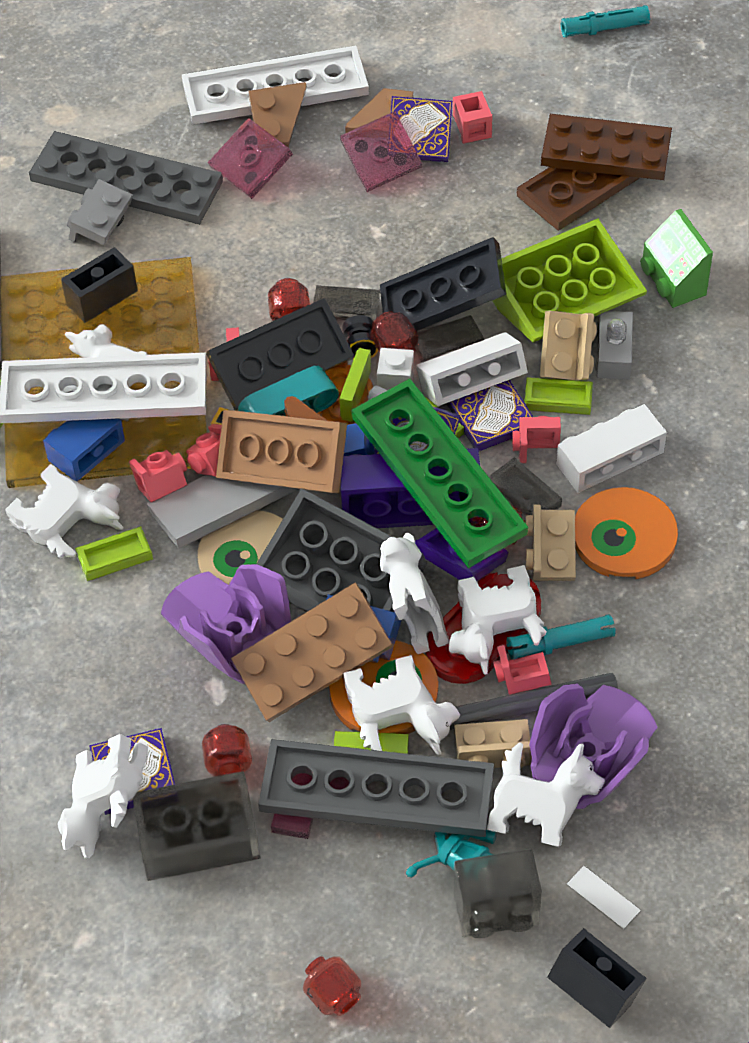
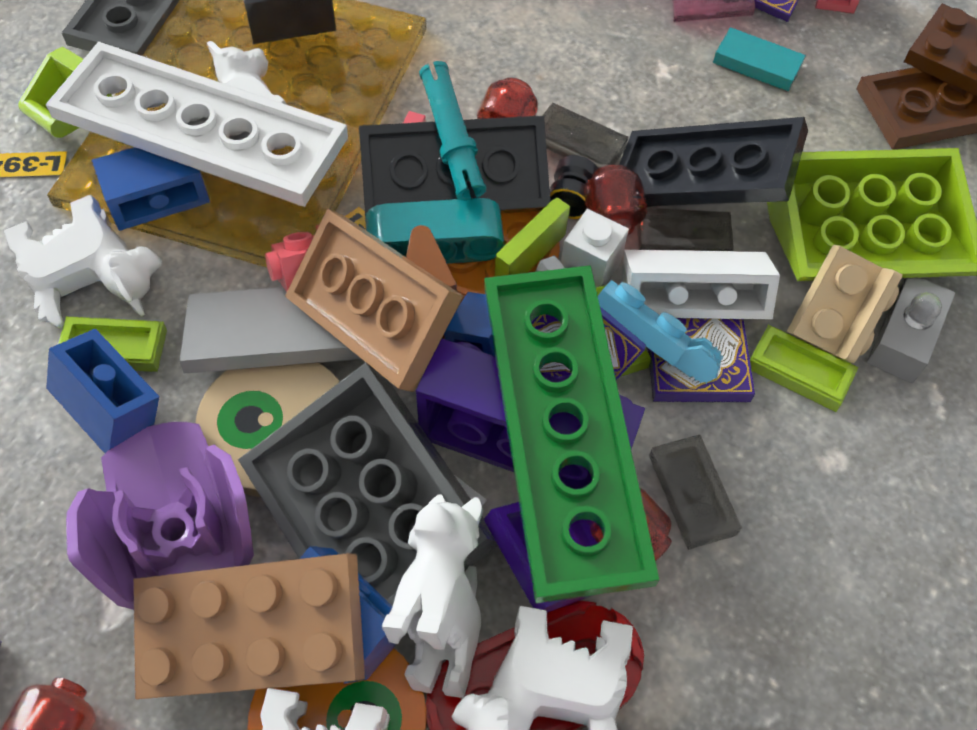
camera: 20 degrees right, 5 degrees up
(137, 576) = (100, 389): none -> blue brick
(159, 474) = (222, 262): coral brick -> none
(281, 340) = (457, 147): none -> teal pin
(440, 198) = (759, 59): none -> teal tile
(467, 405) = (661, 332): none -> medium azure hinge
(536, 433) = (747, 410): coral bracket -> none
(552, 544) = (695, 598): tan bracket -> none
(611, 448) = (847, 477): white brick -> none
(625, 533) = (815, 624): orange tile -> none

